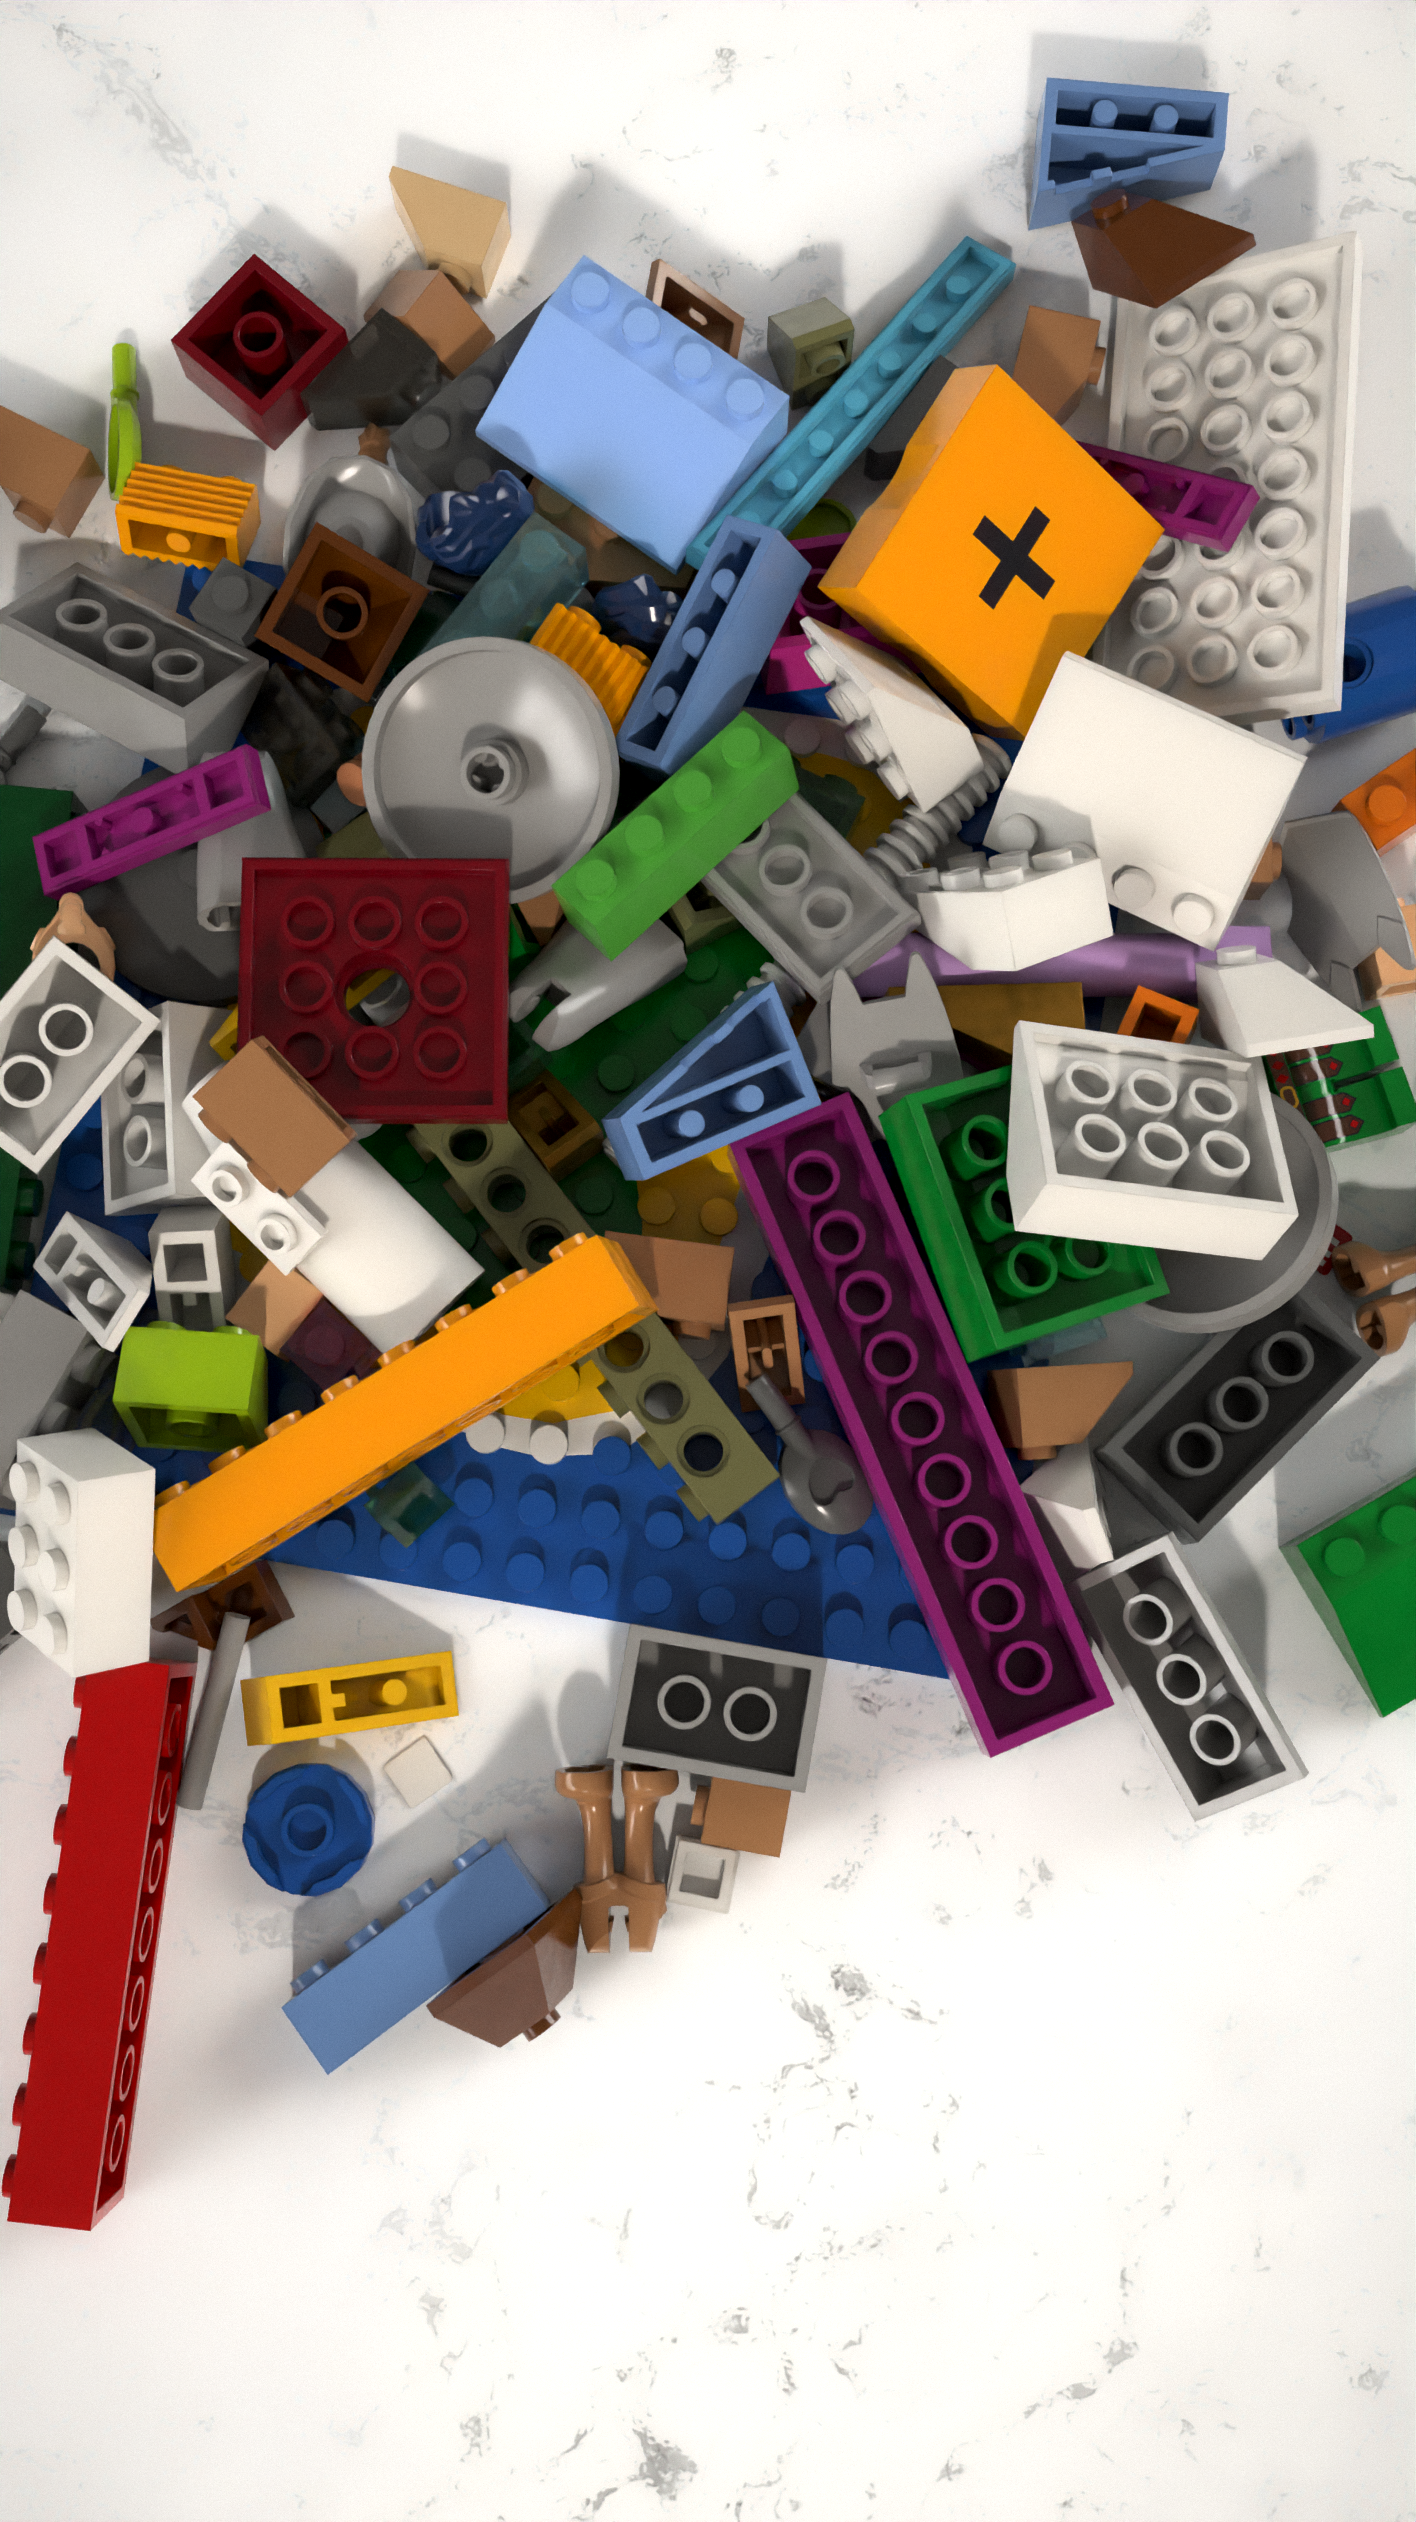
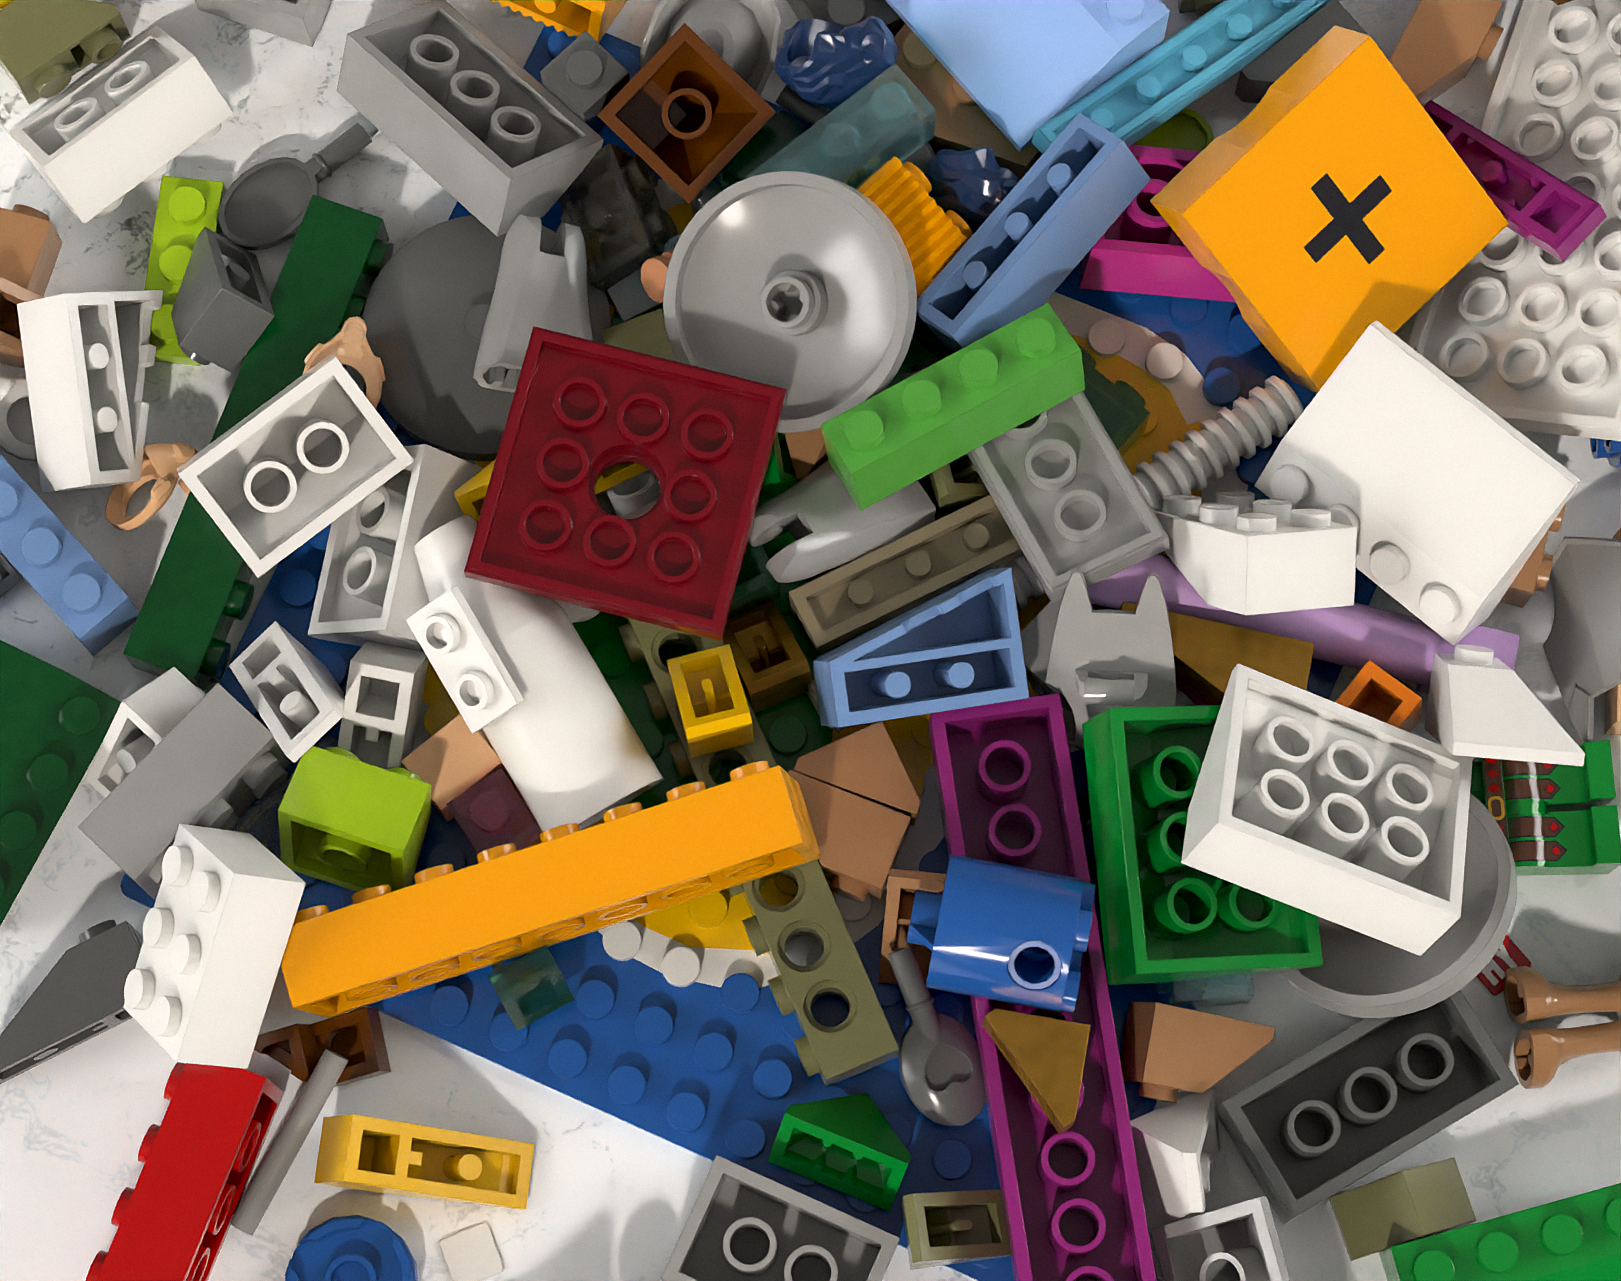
camera: 15 degrees right, 5 degrees down
(152, 822) = (452, 269): magenta plate -> none
(272, 1117) = (502, 579): medium nougat brick -> none
(512, 1183) = (711, 700): none -> yellow slope
(668, 1013) = (903, 574): none -> dark tan panel
(678, 1210) = (866, 767): none -> medium nougat slope
(750, 1580) = (843, 1147): none -> green slope
(859, 1342) = (1005, 933): none -> blue cylinder
(875, 1632) = (954, 1227): none -> olive slope
(893, 717) = (1195, 341): white slope -> none
(929, 1453) = (1046, 1058): none -> pearl gold slope
(1293, 1501) = (1402, 1208): none -> olive slope

